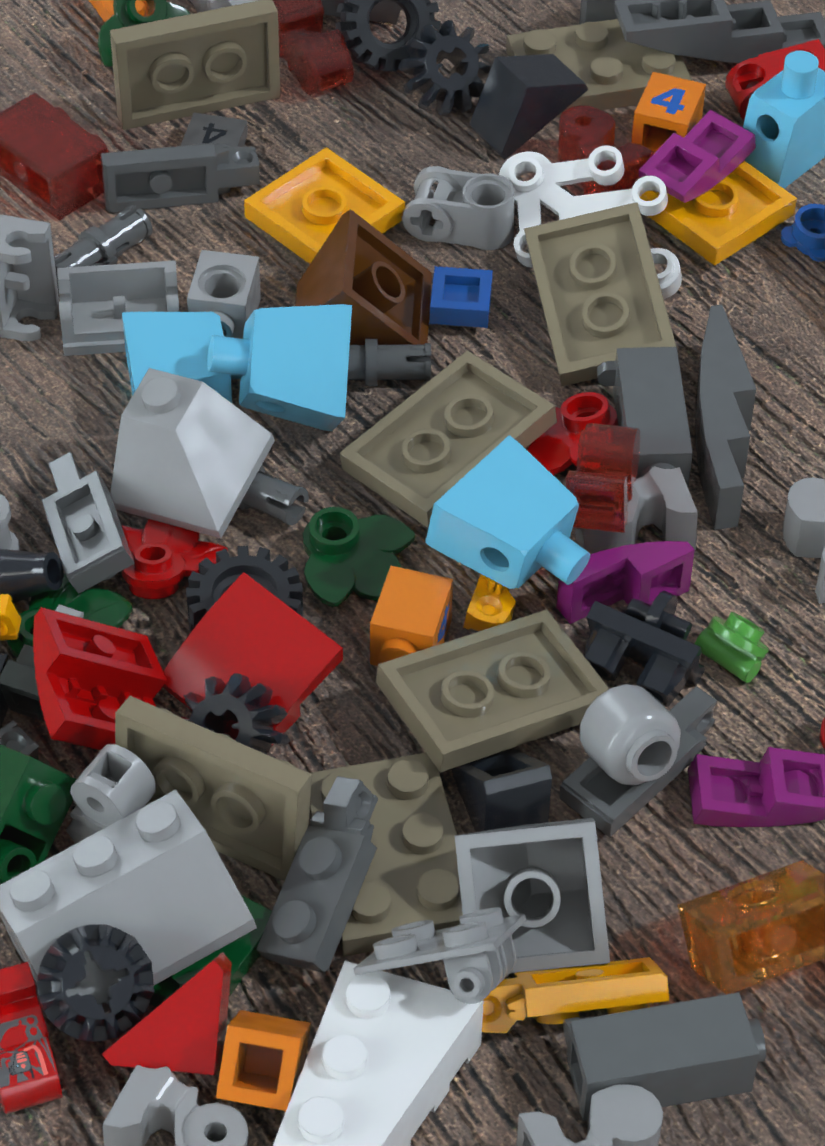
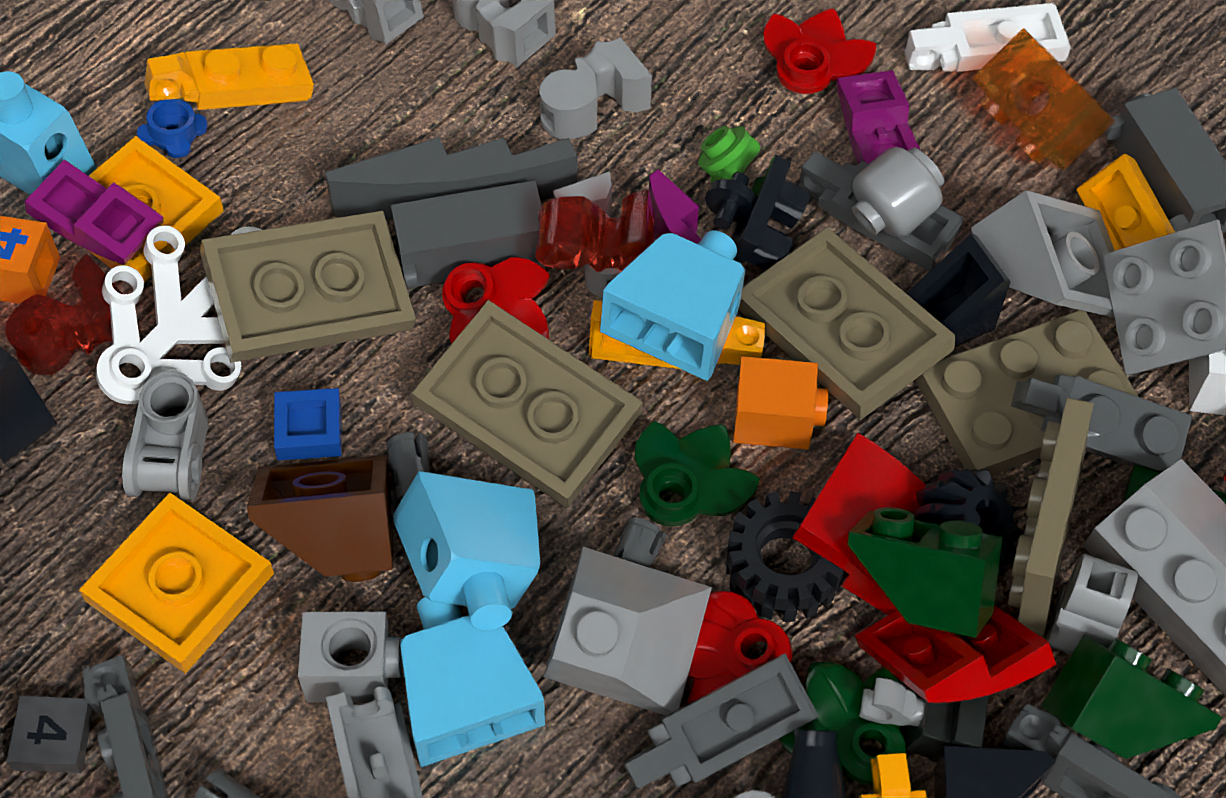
camera: 100 degrees left, 10 degrees up
(174, 653) = (929, 570): none -> dark green slope

